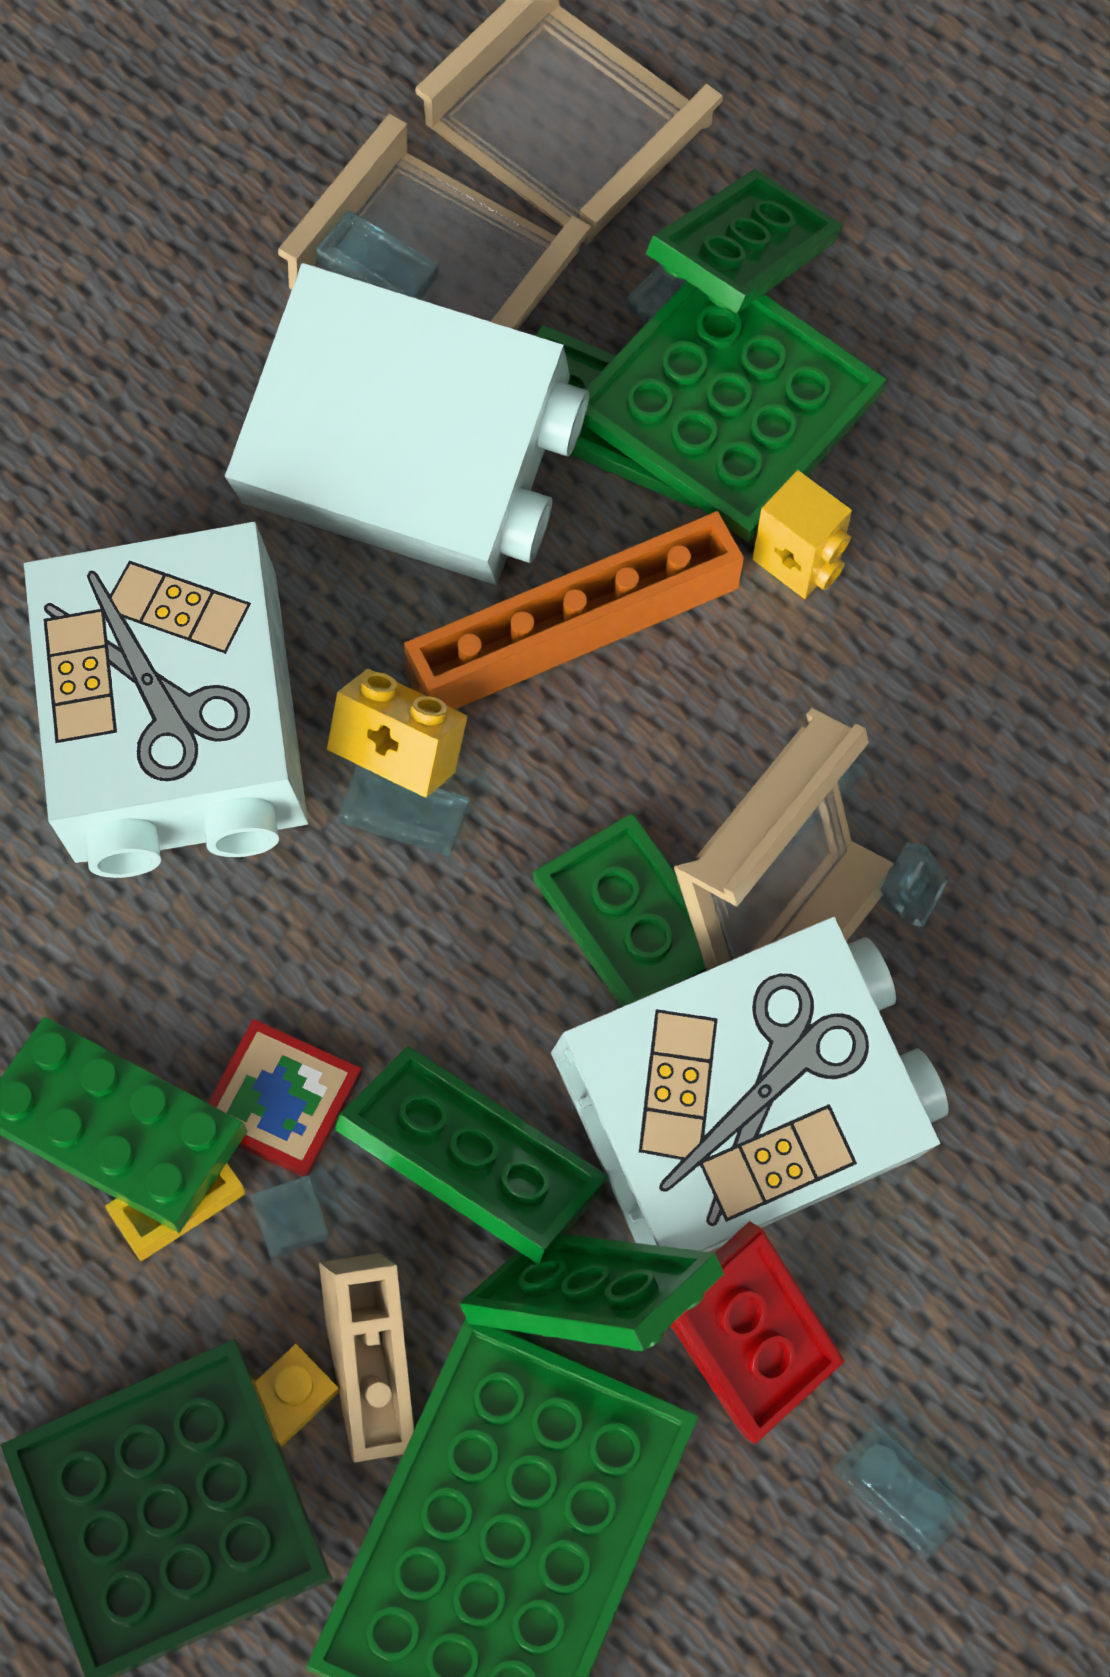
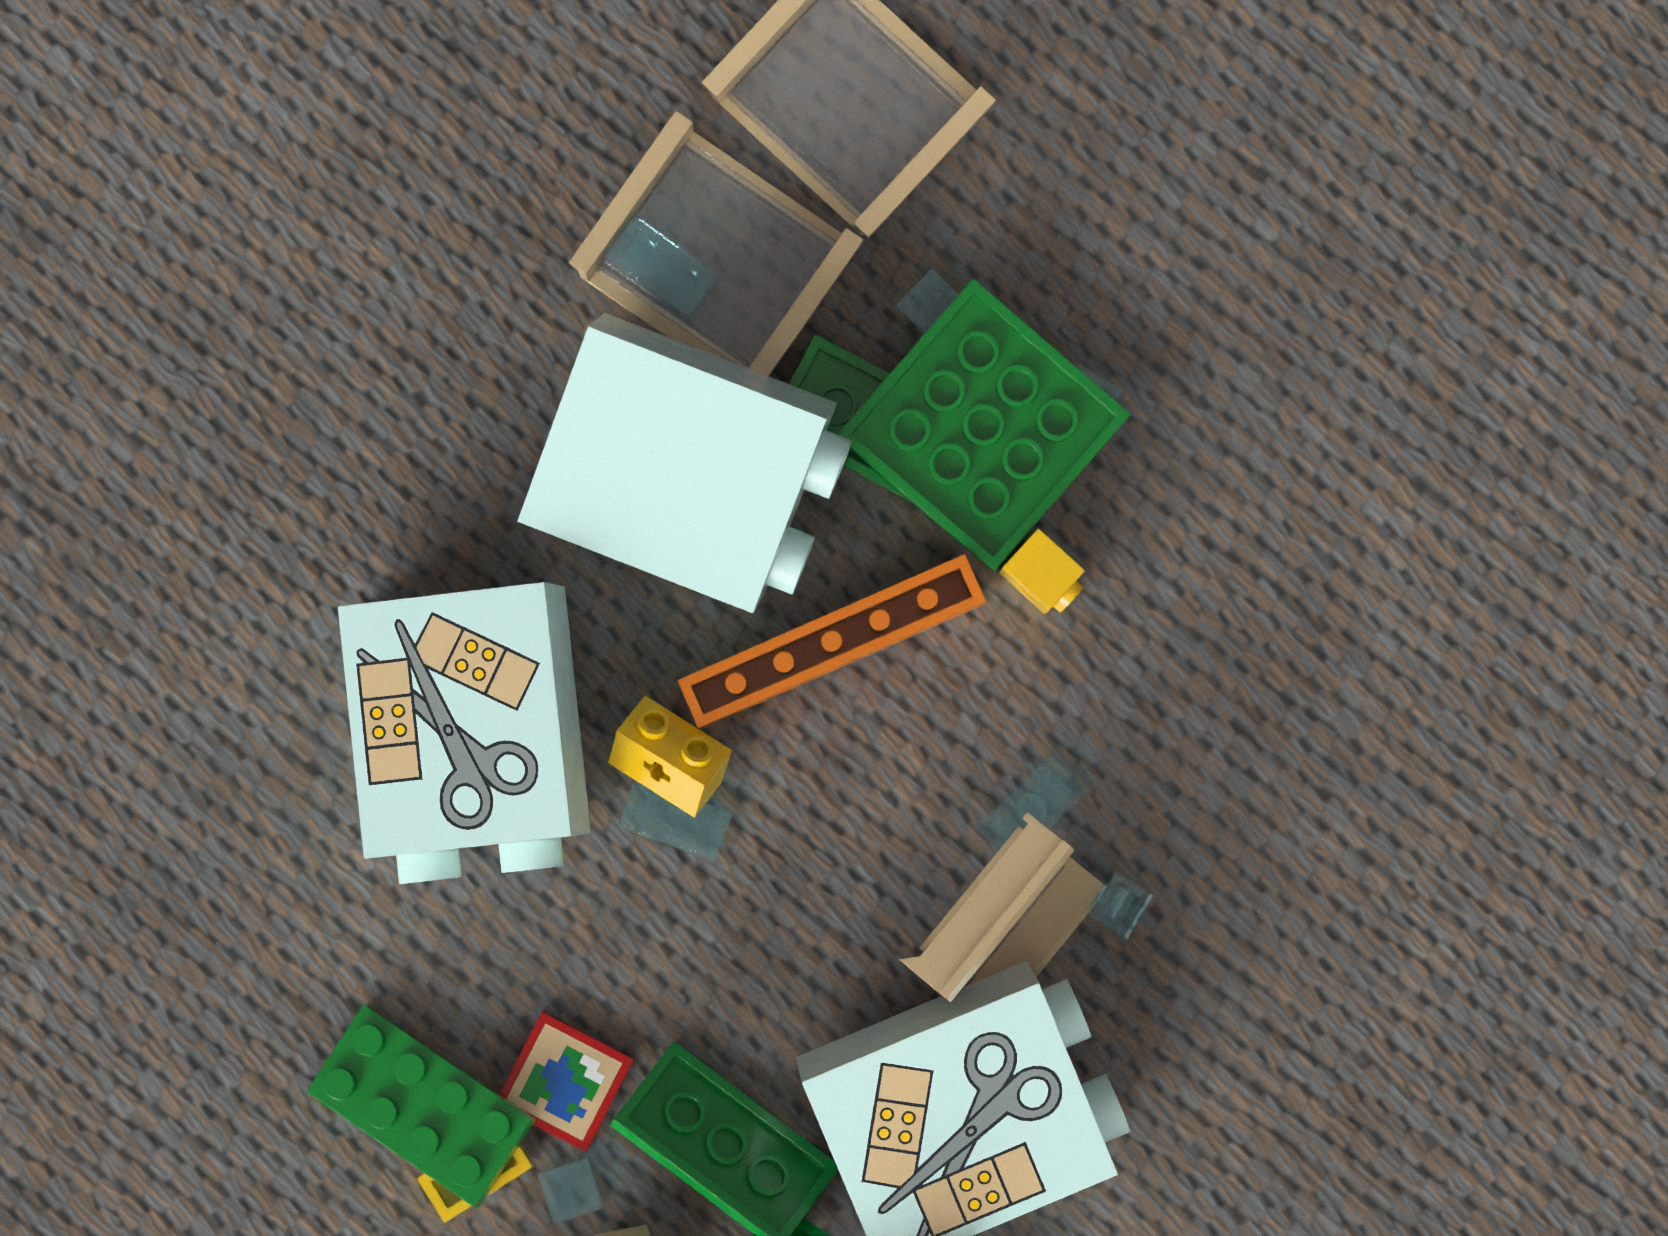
camera: 10 degrees right, 20 degrees up
(624, 911) = (866, 923): green plate -> none
(743, 240) = (1007, 263): green plate -> none

